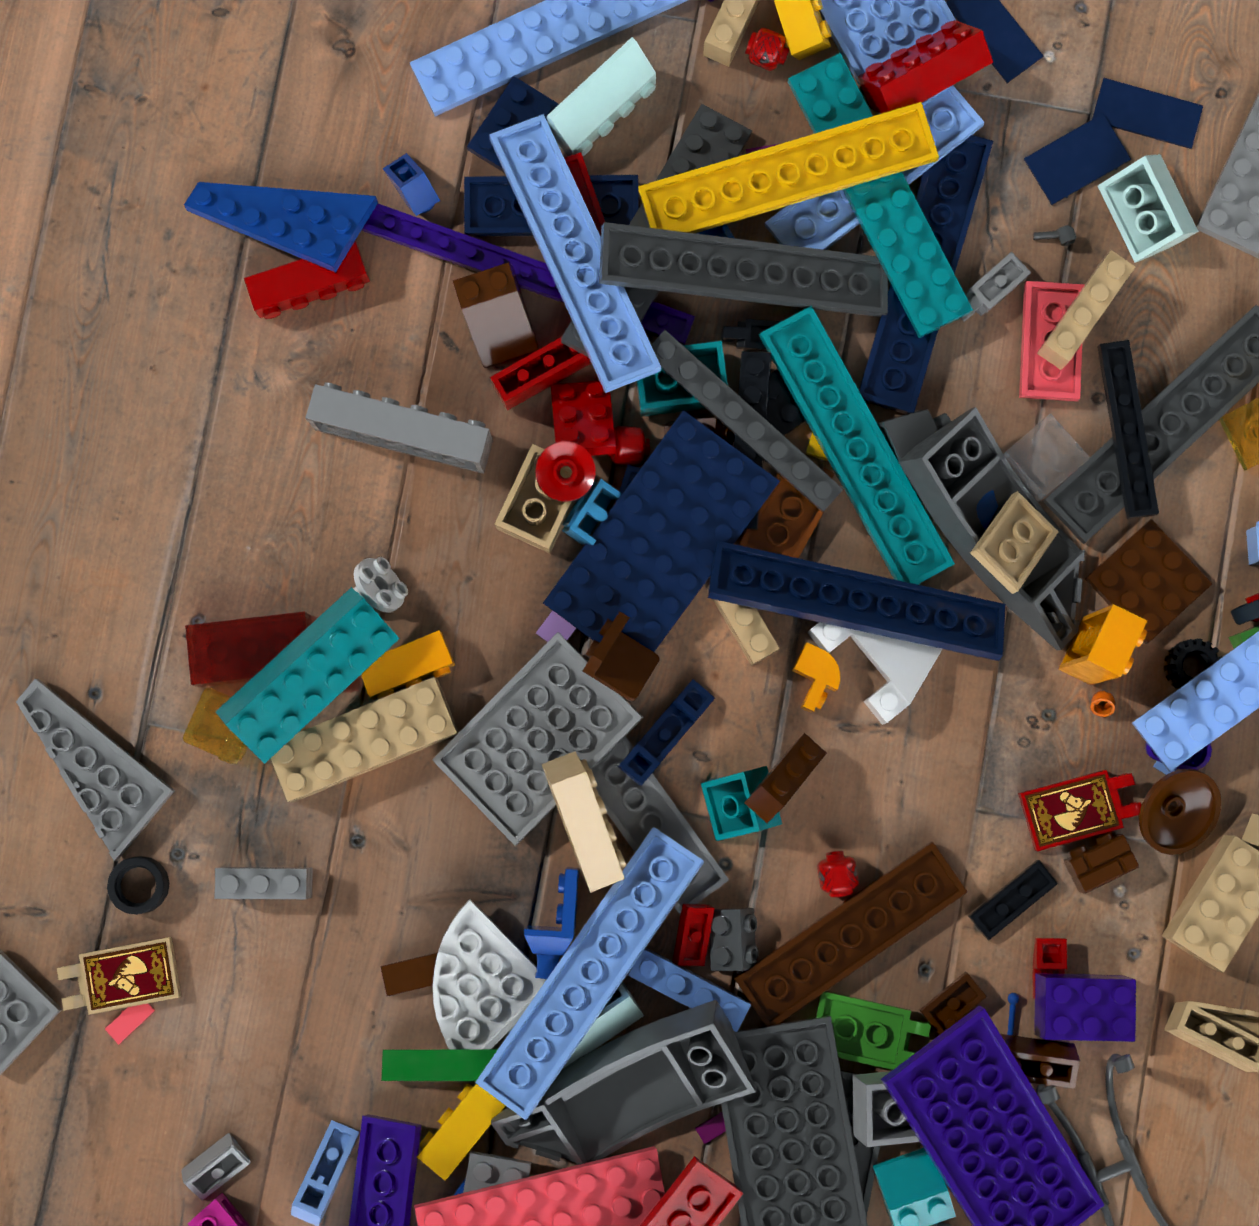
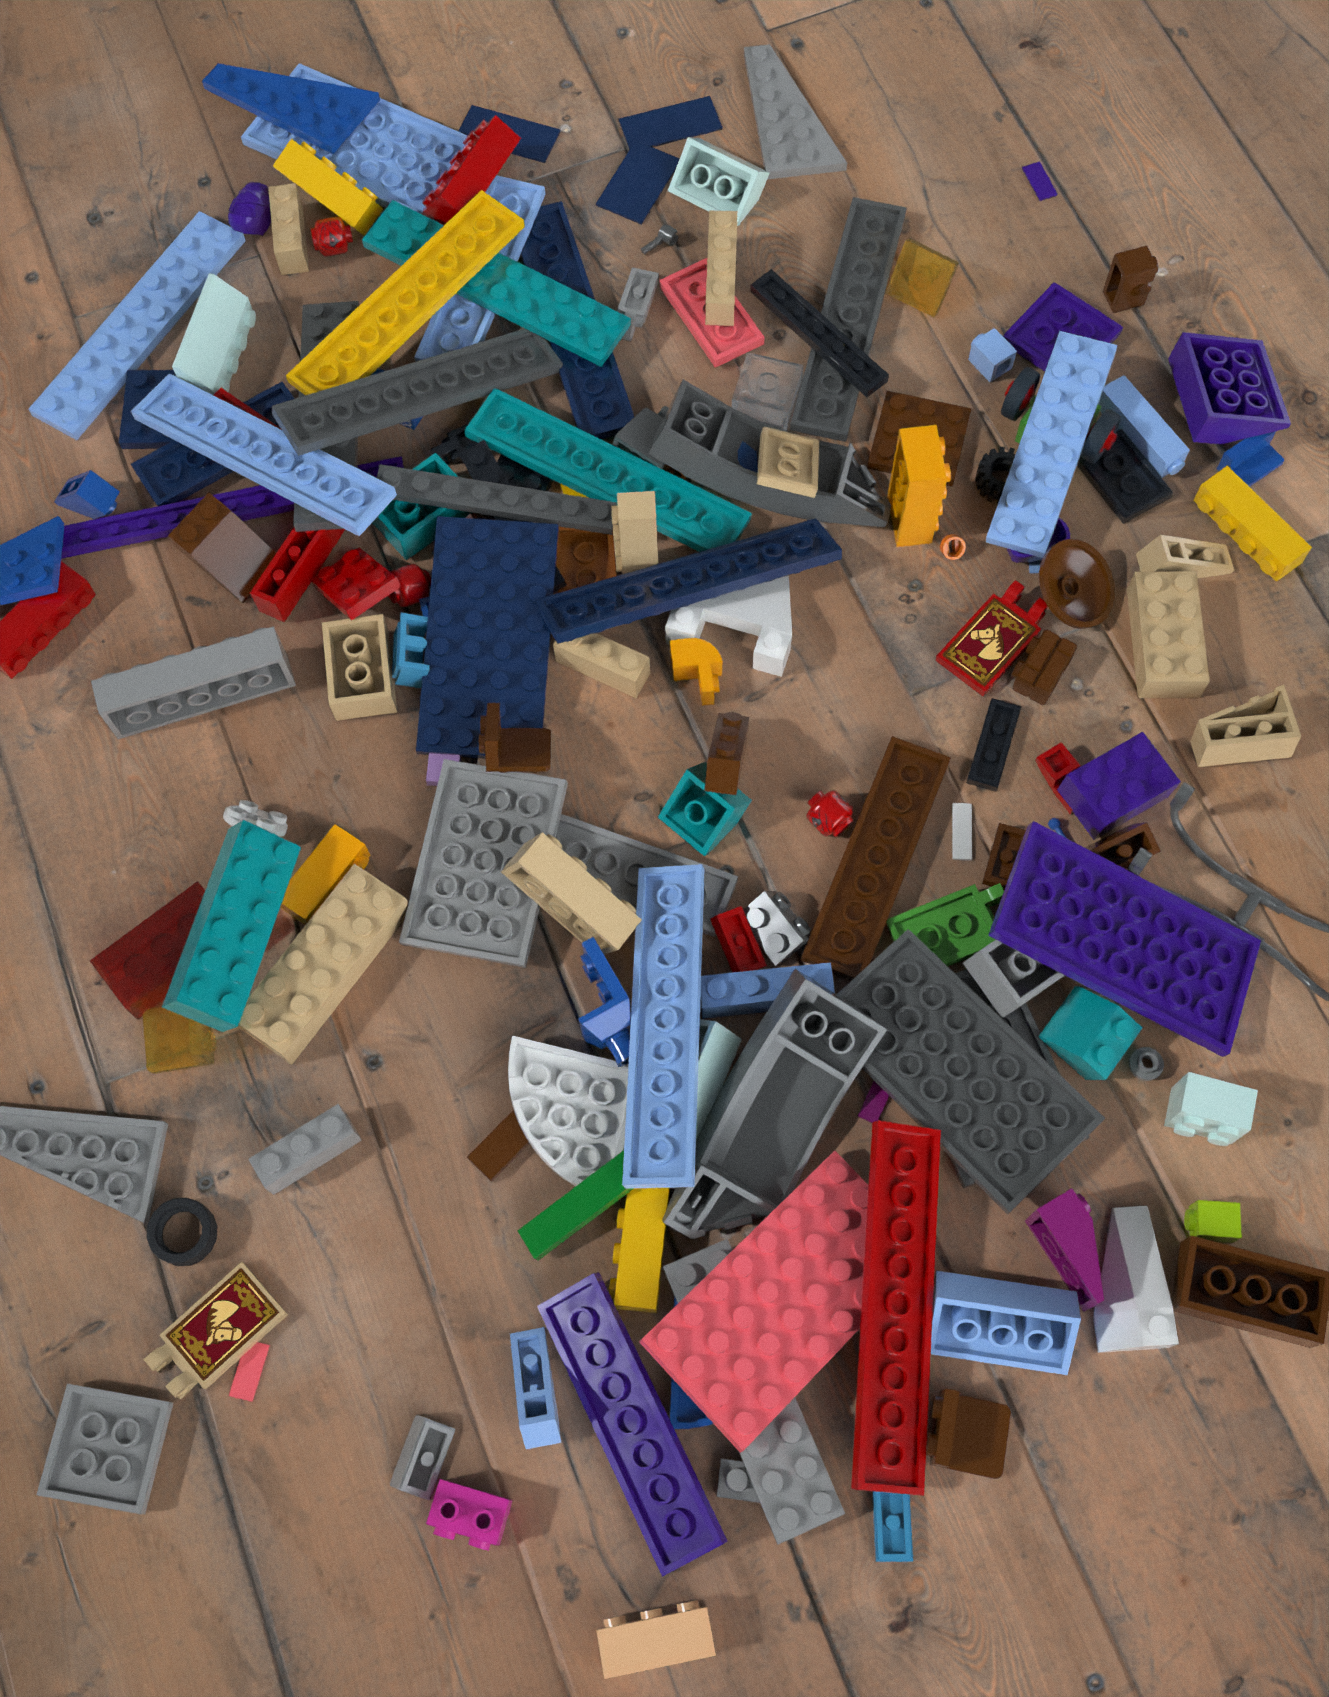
camera: 30 degrees left, 15 degrees down
(565, 455) = (360, 608): red dish -> none
(666, 732) = (598, 788): dark blue slope -> none
(835, 539) = (635, 531): none -> tan brick
(935, 955) = (961, 831): none -> white window

